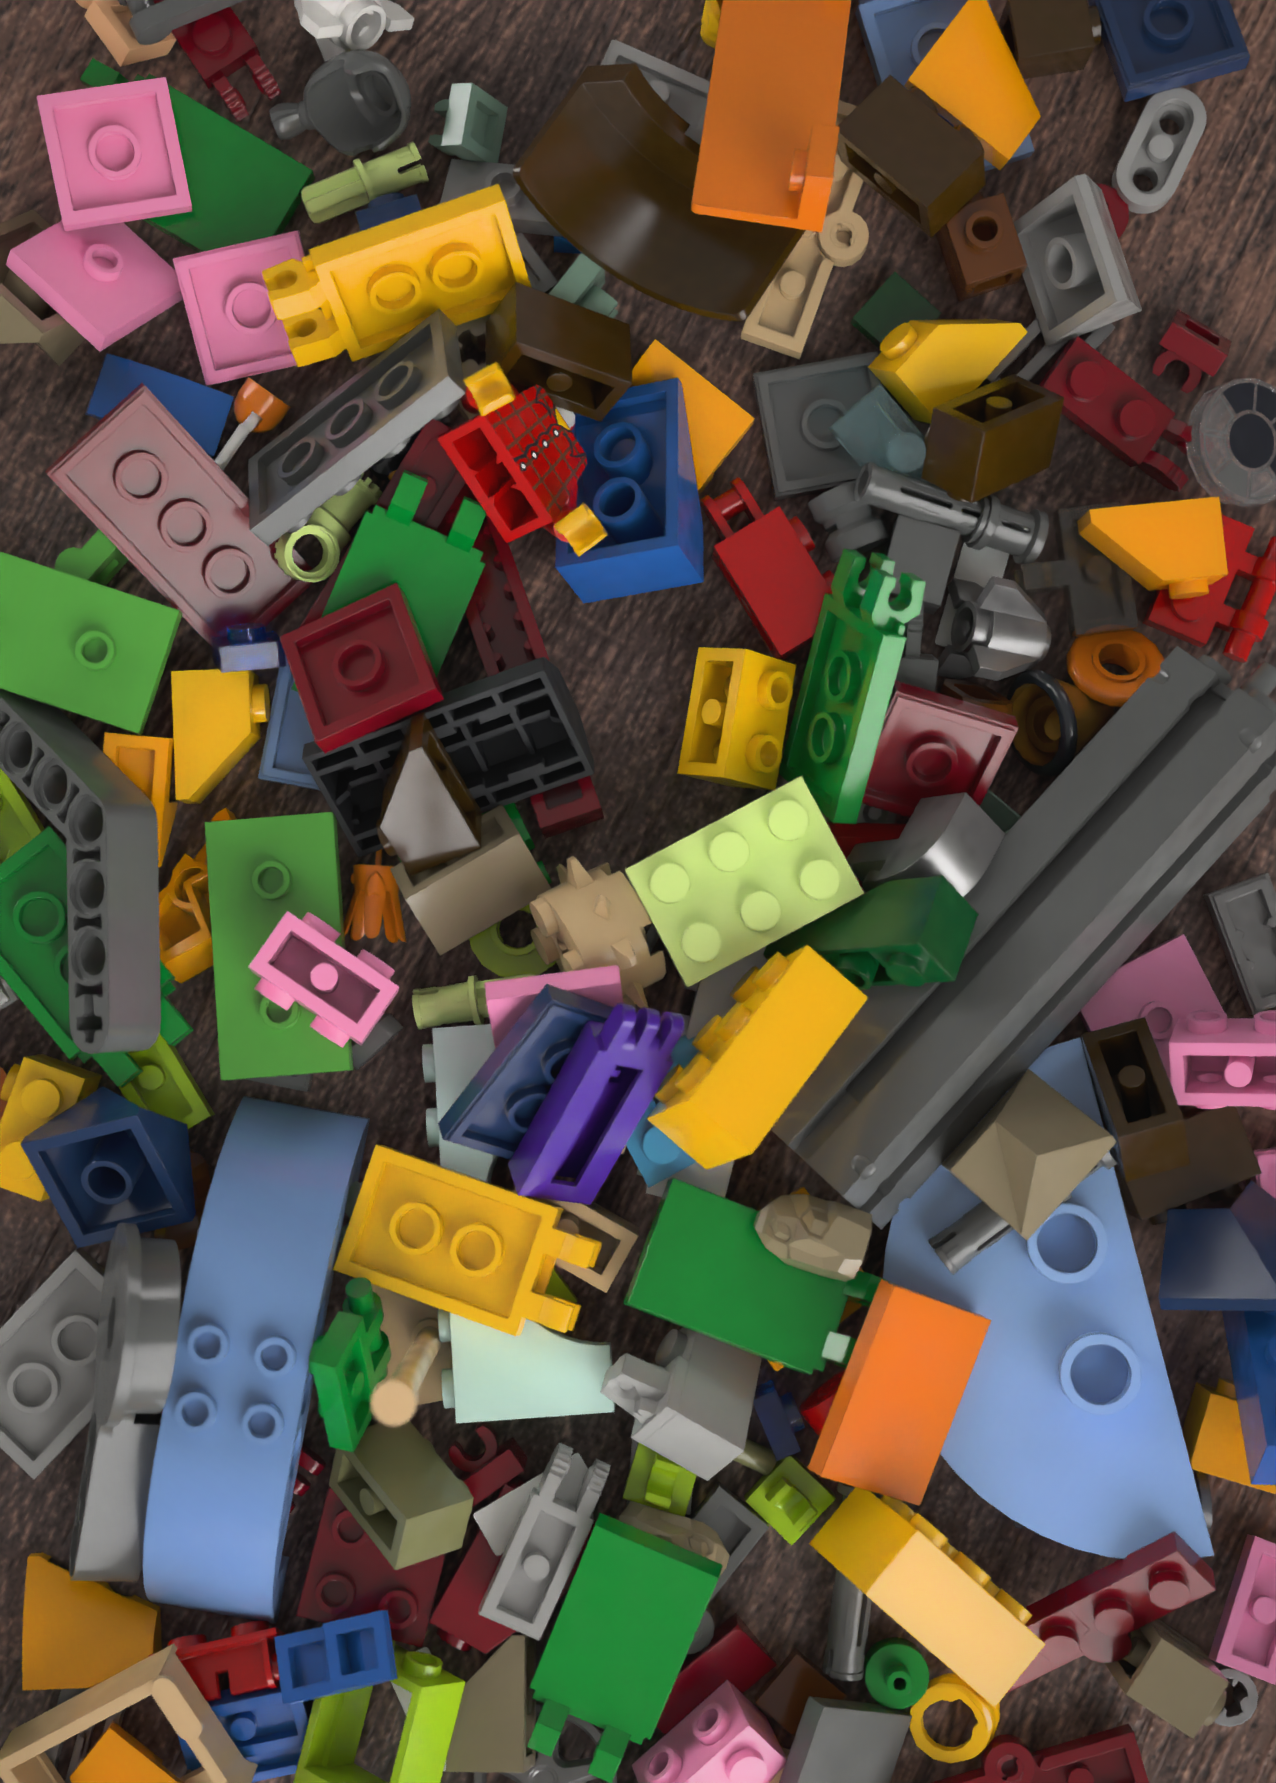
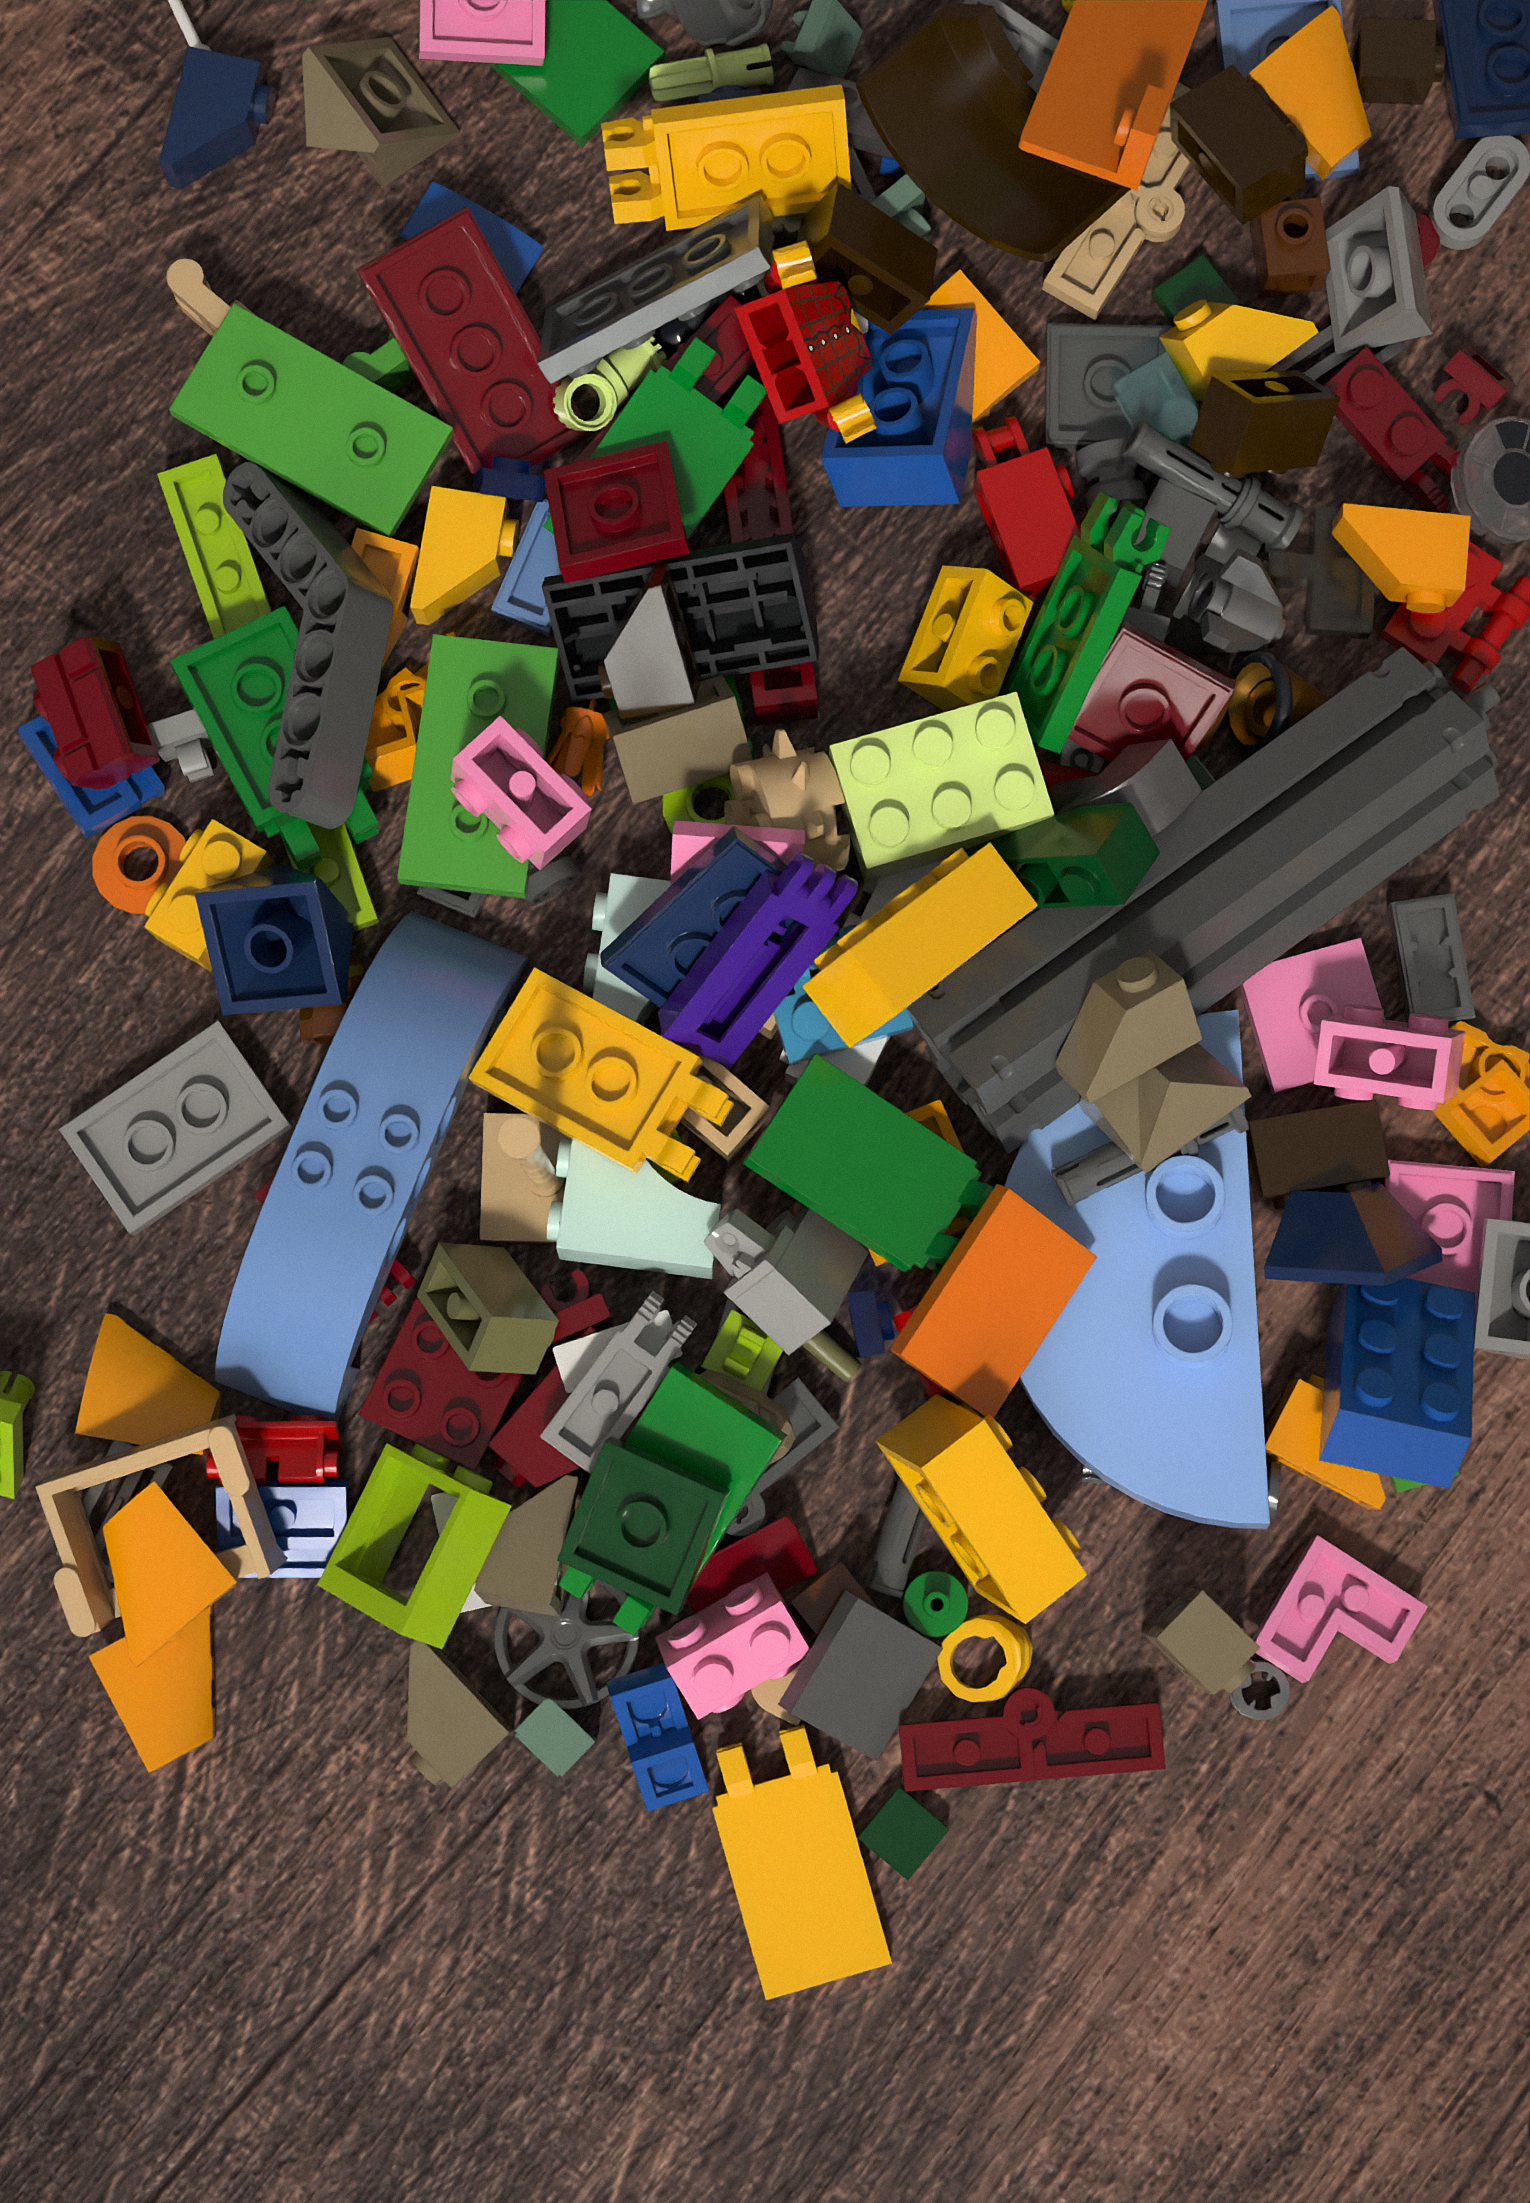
camera: 10 degrees right, 5 degrees down
(97, 279) = (440, 109): bright pink plate -> none
(131, 1388) = (249, 1143): dark grey beam -> none
(231, 307) = (565, 168): bright pink plate -> none
(256, 413) = (563, 264): orange hinge -> none
(336, 1657) = (392, 1457): blue slope -> none
(350, 1364) = (465, 1171): green plate -> none
(453, 1003) = (633, 859): yellowish green axle -> none
(599, 1684) = (643, 1525): none -> dark green plate
(790, 1498) = (864, 1408): lime tile -> none
(815, 1234) = (941, 1132): dark tan rock -> none
(982, 1105) = (1127, 1027): none -> dark tan slope
(1104, 1607) = (1151, 1562): dark red hinge -> none
(1122, 648) = (1323, 652): orange piece -> none
(1136, 1099) = (1279, 1071): dark brown brick -> none

